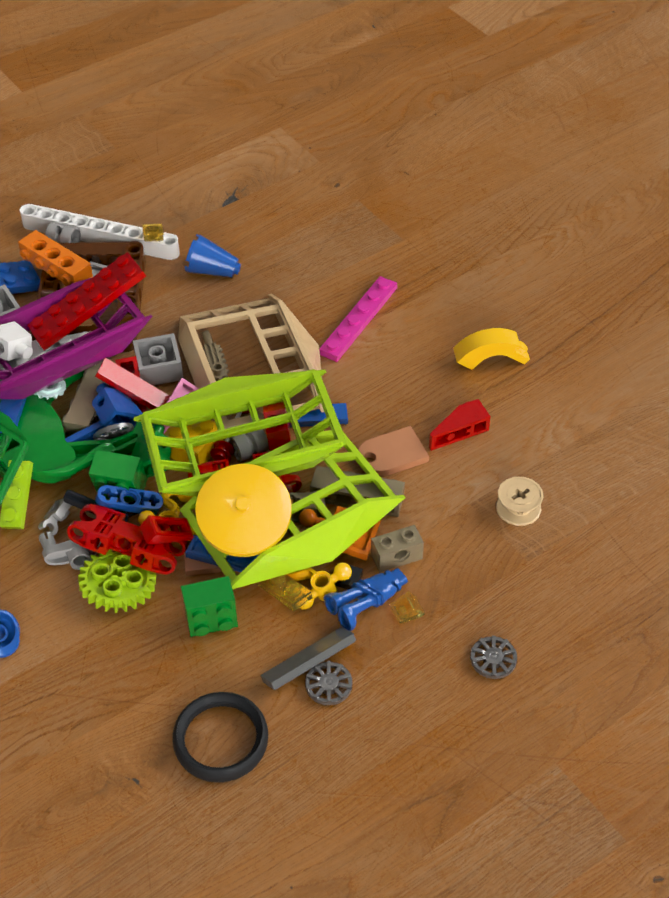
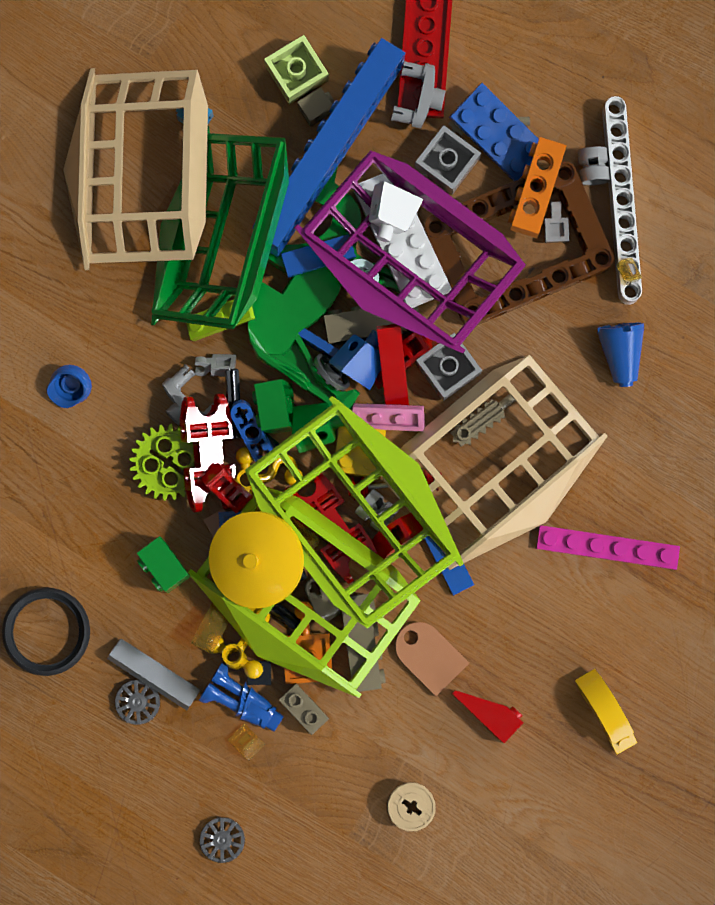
camera: 60 degrees right, 35 degrees up
(86, 301) = (473, 265): red plate -> none

